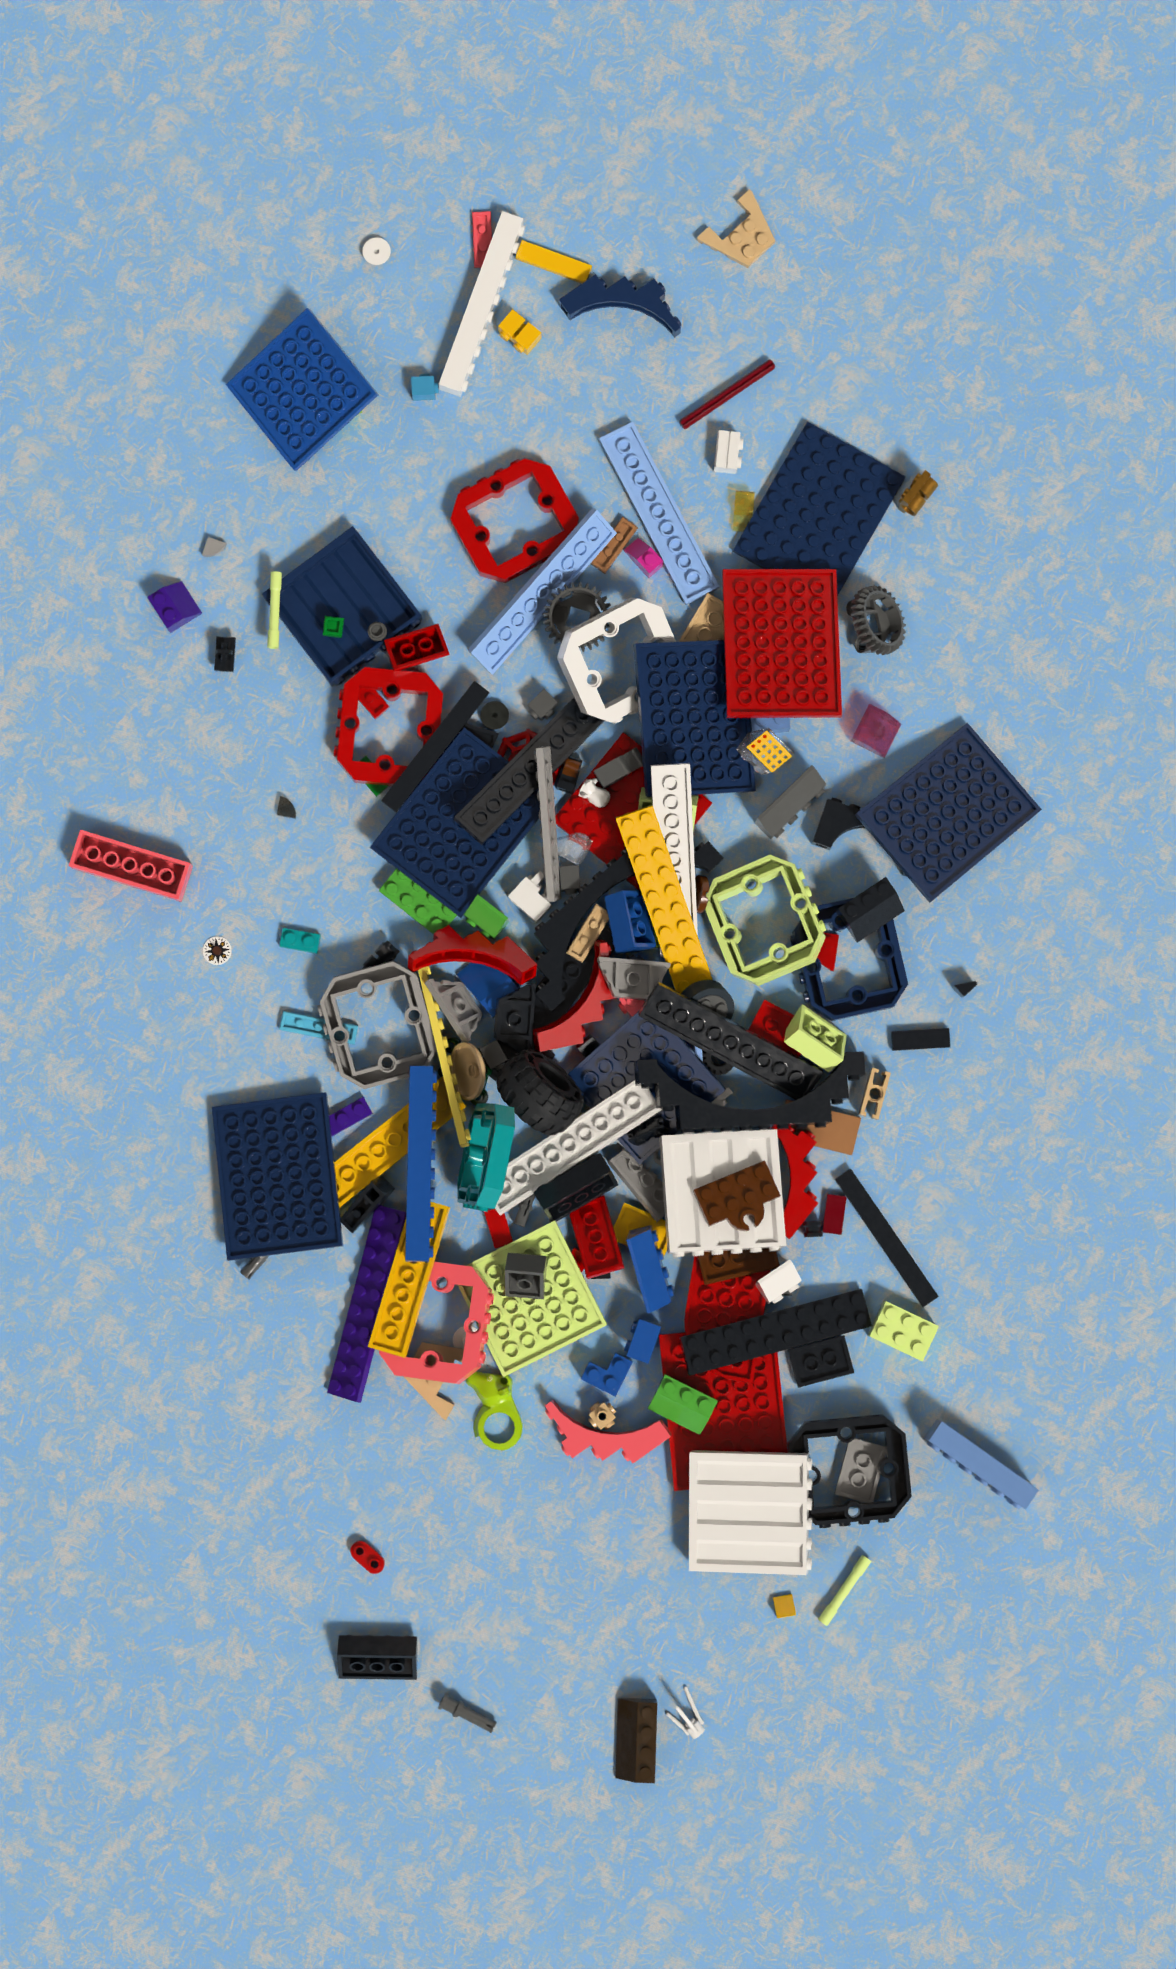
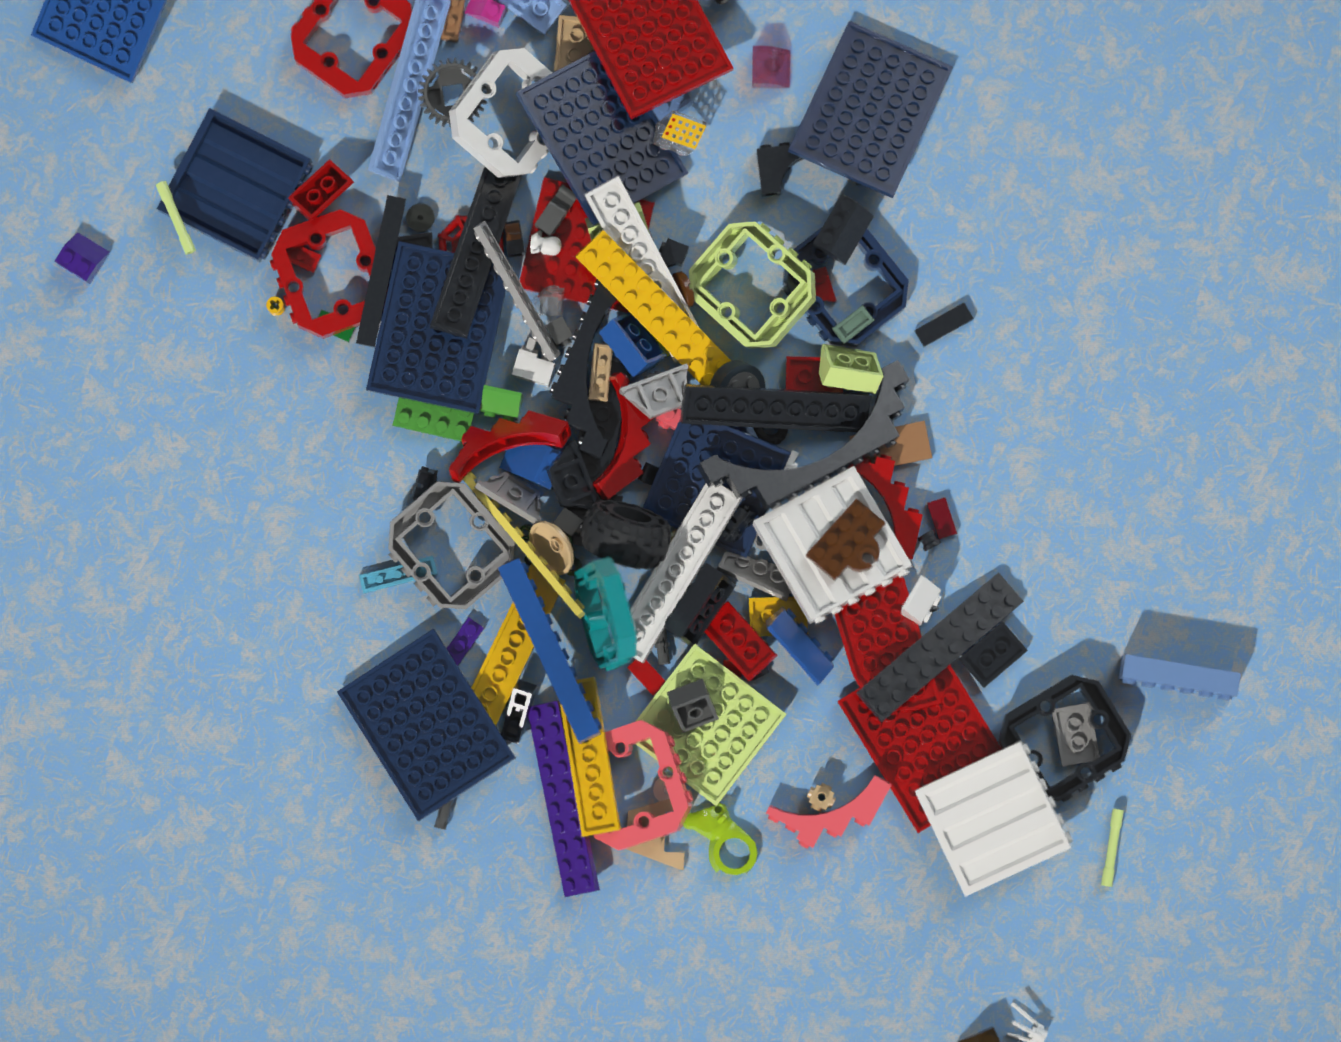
camera: 20 degrees left, 0 degrees up
(130, 865) = (157, 510): coral brick -> none
(213, 547) = (91, 188): light grey tile -> none
(217, 950) = (272, 549): piece -> none
(225, 654) = (149, 279): black hips -> none
(286, 808) = (272, 392): clear smoke tile -> none
(300, 940) = (343, 504): teal plate -> none
(320, 730) = (275, 300): none -> yellow bush
(333, 626) = (236, 207): green tile -> none
(367, 1557) = (672, 1025): red plate -> none
(377, 631) = (278, 192): dark grey plate -> none
(542, 706) = (459, 188): dark grey brick -> none
(610, 1378) = (812, 762): blue brick -> none
(643, 1340) = (825, 711): blue brick -> none
(682, 1404) = (888, 752): bright green slope -> none
(729, 1266) = (872, 607): reddish brown tile -> none
(784, 1606) = (1065, 888): yellow slope -> none
(791, 802) = (725, 168): dark grey slope -> none
(838, 1000) = (853, 324): none -> sand green tile
(882, 1090) = (931, 386): tan piece -> none
(886, 1238) = (998, 516): black tile -> none
(903, 1330) = (1053, 592): yellowish green brick -> none
(963, 989) = (960, 261): black slope -> none

